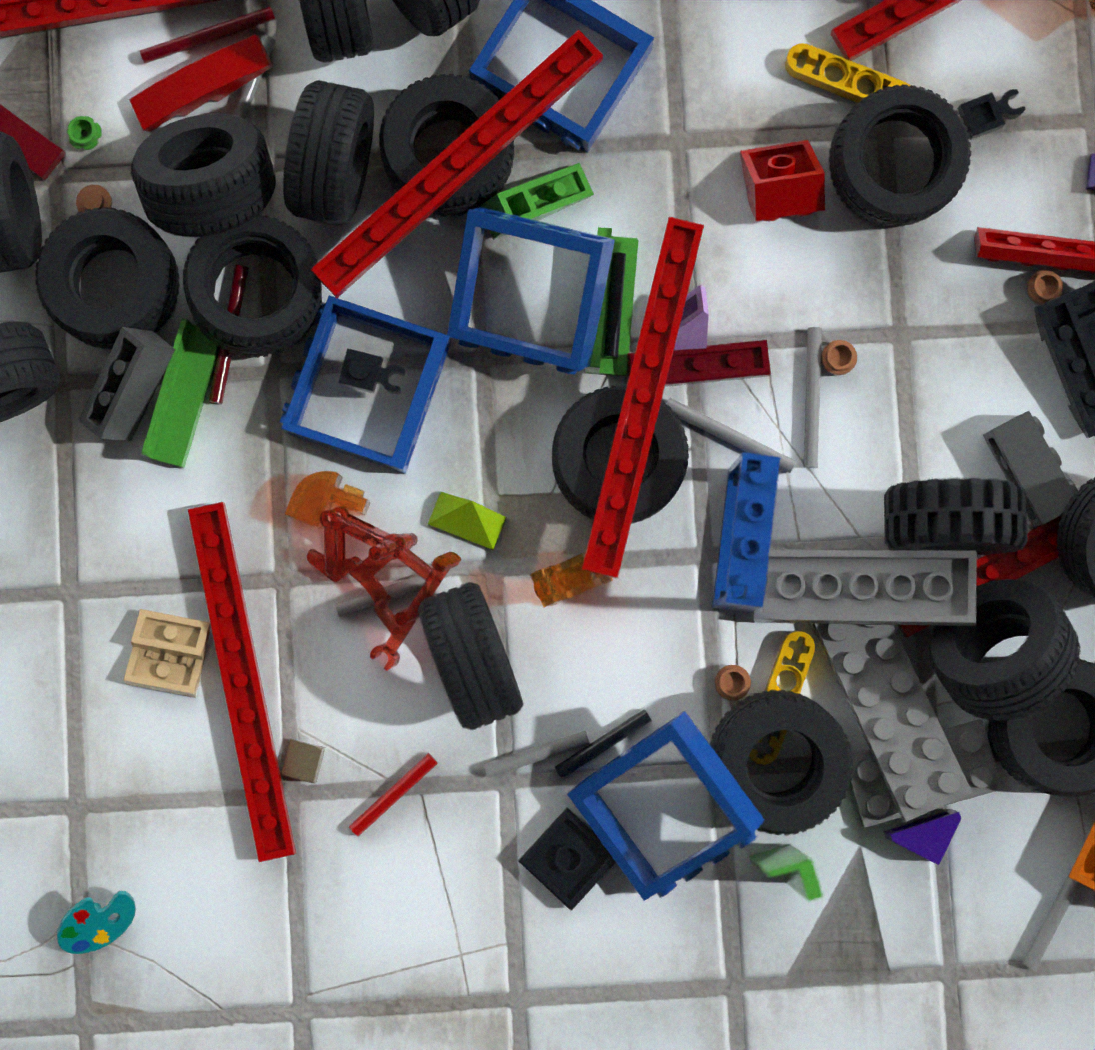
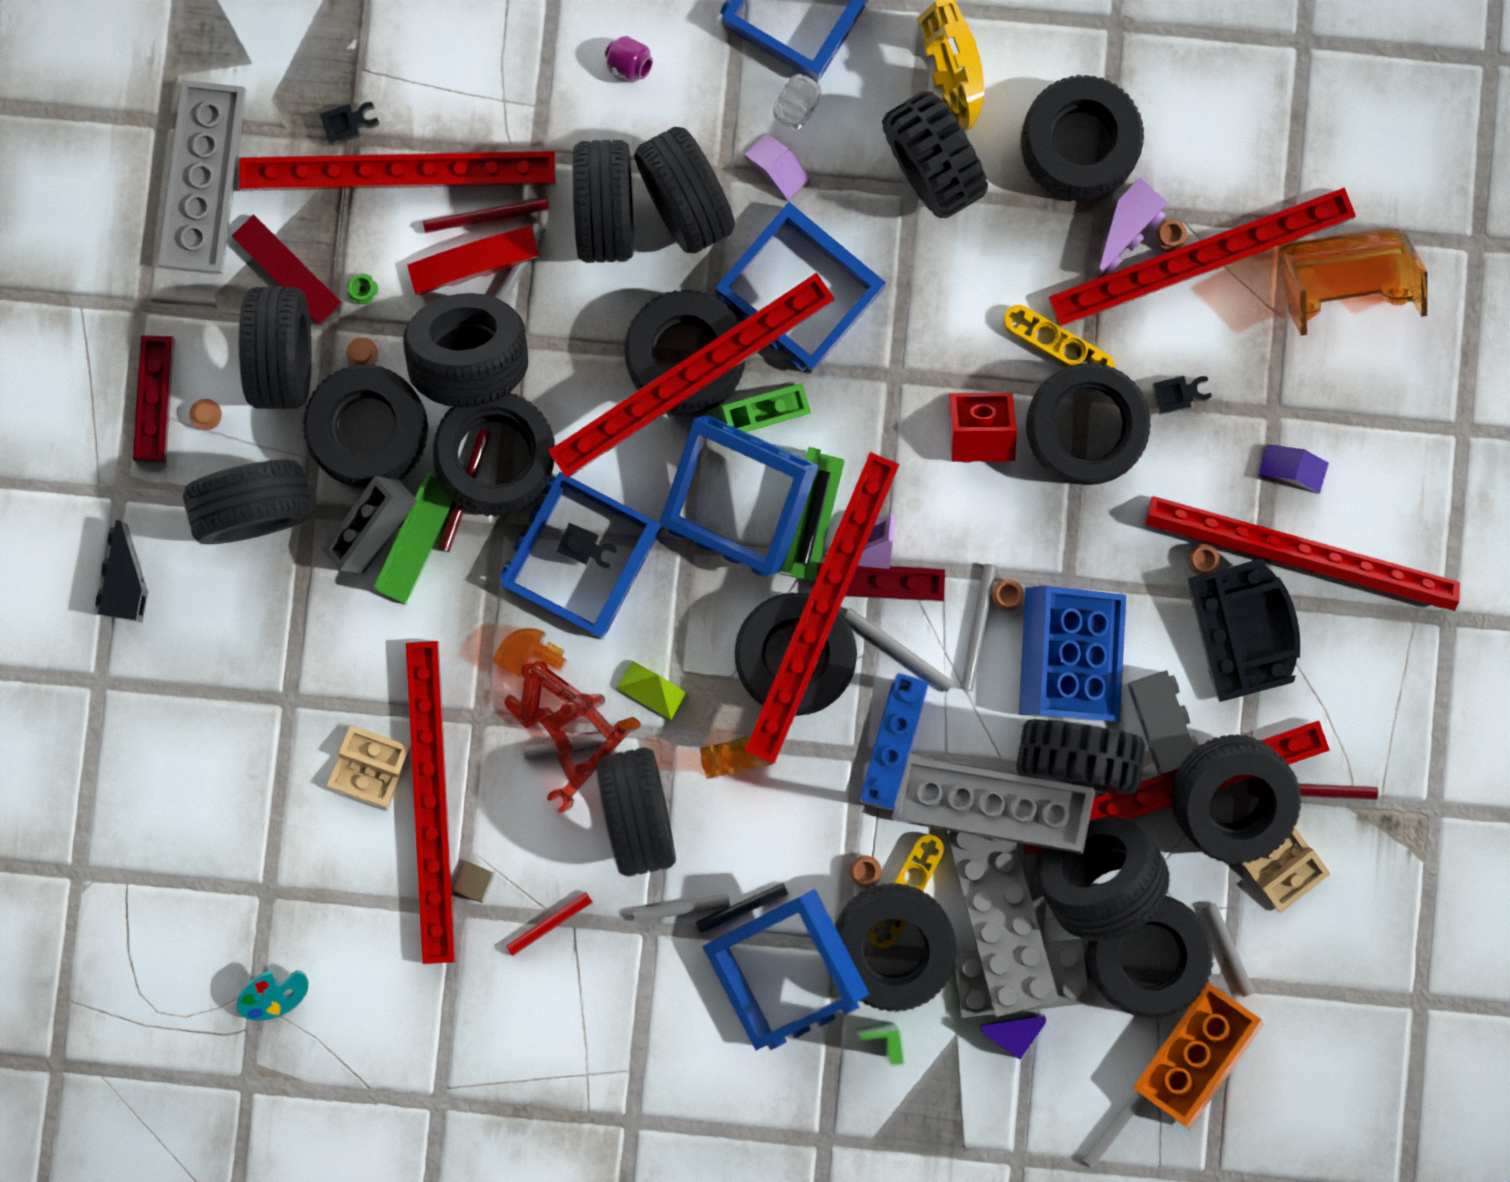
camera: 15 degrees right, 0 degrees up
(328, 152) = (579, 347): black tyre -> none
(568, 859) = (694, 1004): black plate -> none
(919, 409) = (1072, 654): none -> blue slope

